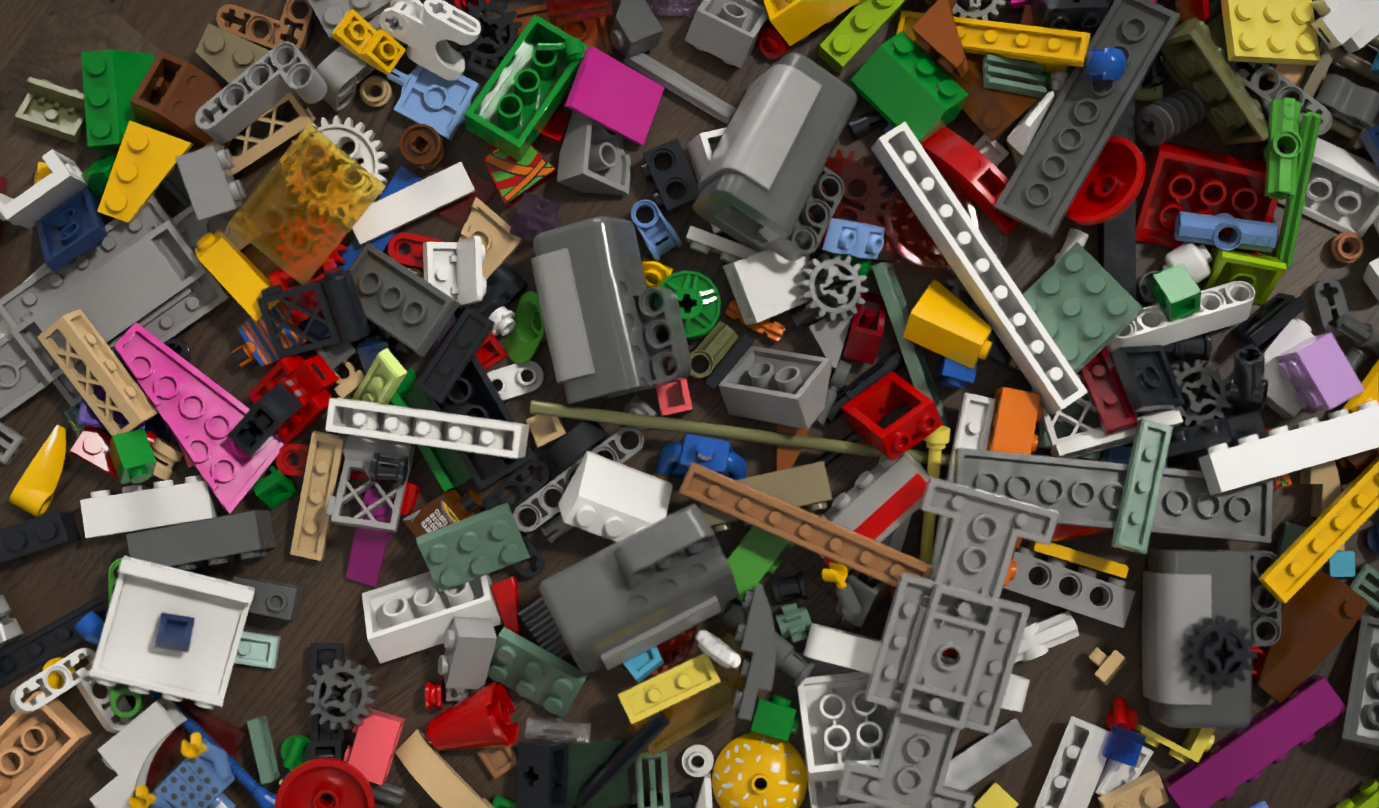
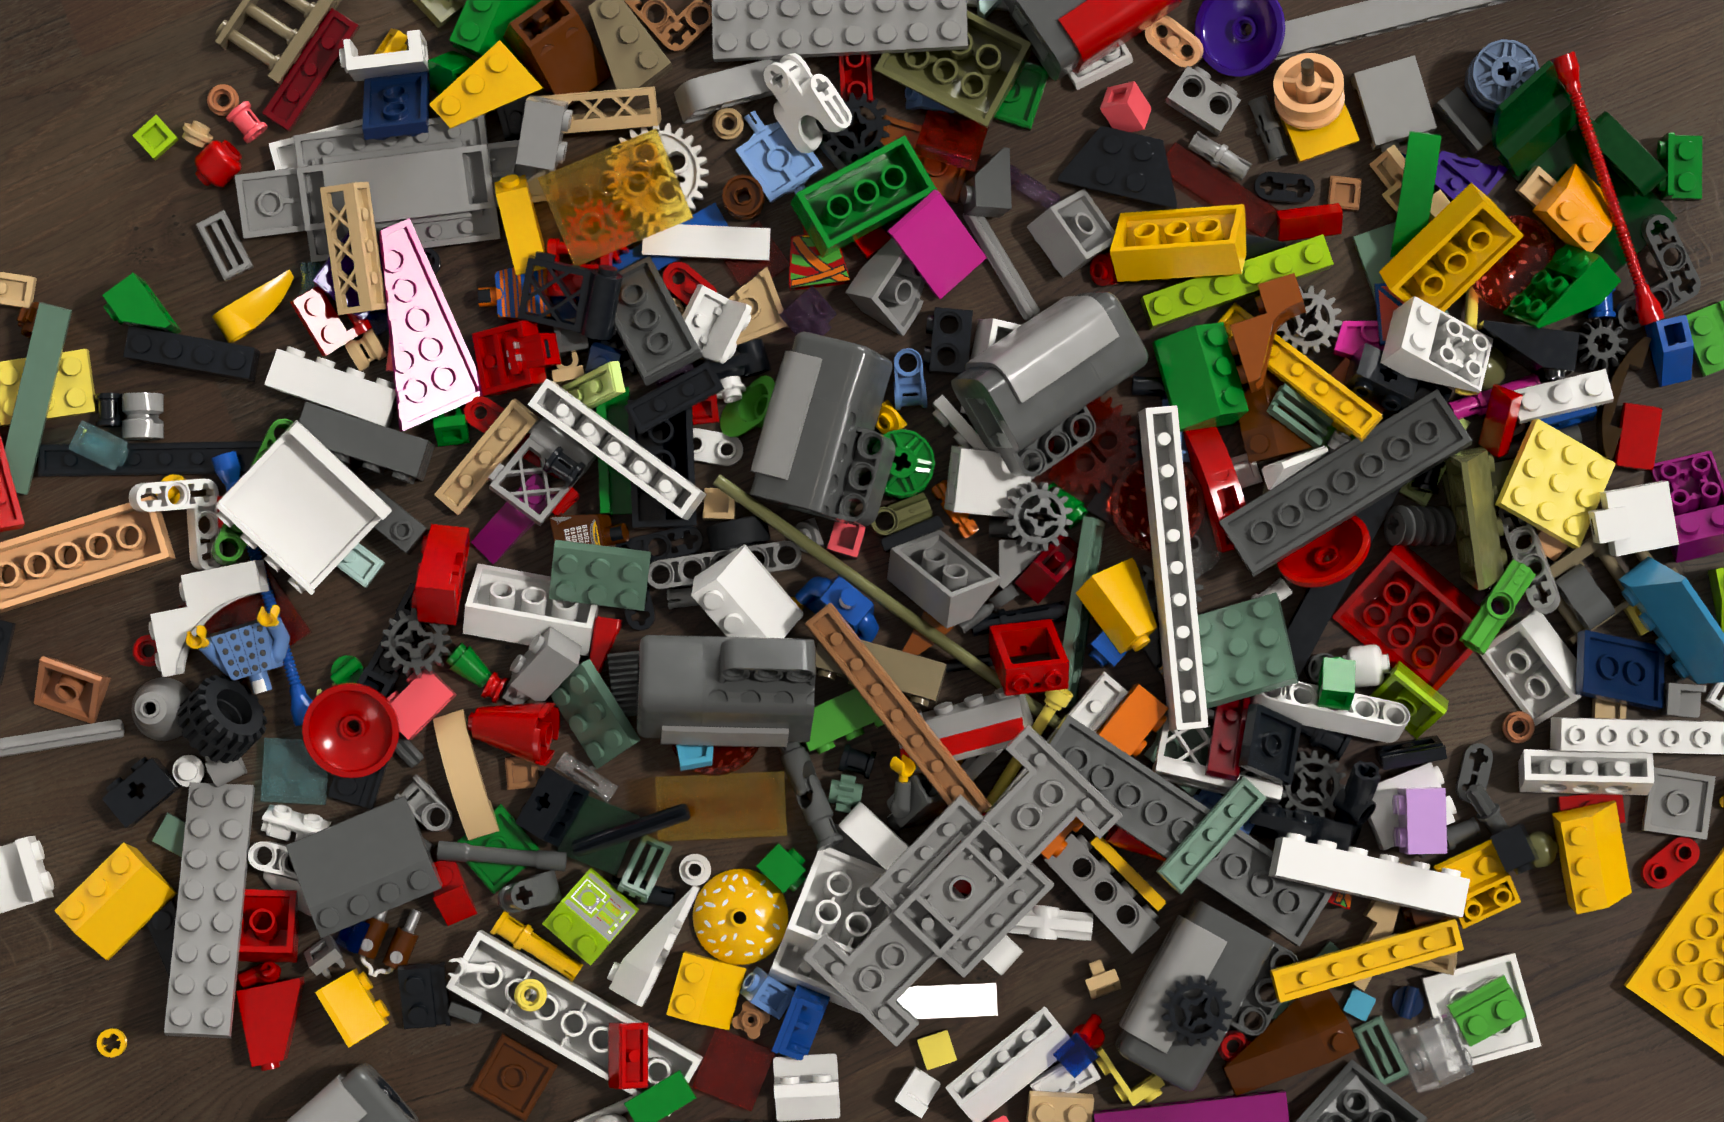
camera: 25 degrees right, 0 degrees up
(132, 456) = (345, 336): green brick -> none
(174, 632) = (305, 509): dark blue plate -> none
(258, 90) = (579, 88): light grey beam -> none
(263, 749) = (320, 653): sand green tile -> none
(265, 420) = (478, 366): black brick -> none
(332, 622) = (441, 574): none -> red wedge
(367, 43) = (744, 83): yellow slope -> none
(401, 688) = (468, 665): none -> green cone
(571, 46) = (921, 182): green hand -> none
(669, 687) = (705, 788): light yellow plate -> none
(717, 649) = (765, 777): white gear -> none
(758, 638) = (805, 786): dark grey slope -> none
(854, 238) = (1079, 483): light blue slope -> none
(1105, 64) = (1381, 449): blue piece -> none
(1245, 233) = (1429, 666): medium blue piece -> none
(1294, 206) = (1495, 652): bright green axle -> none

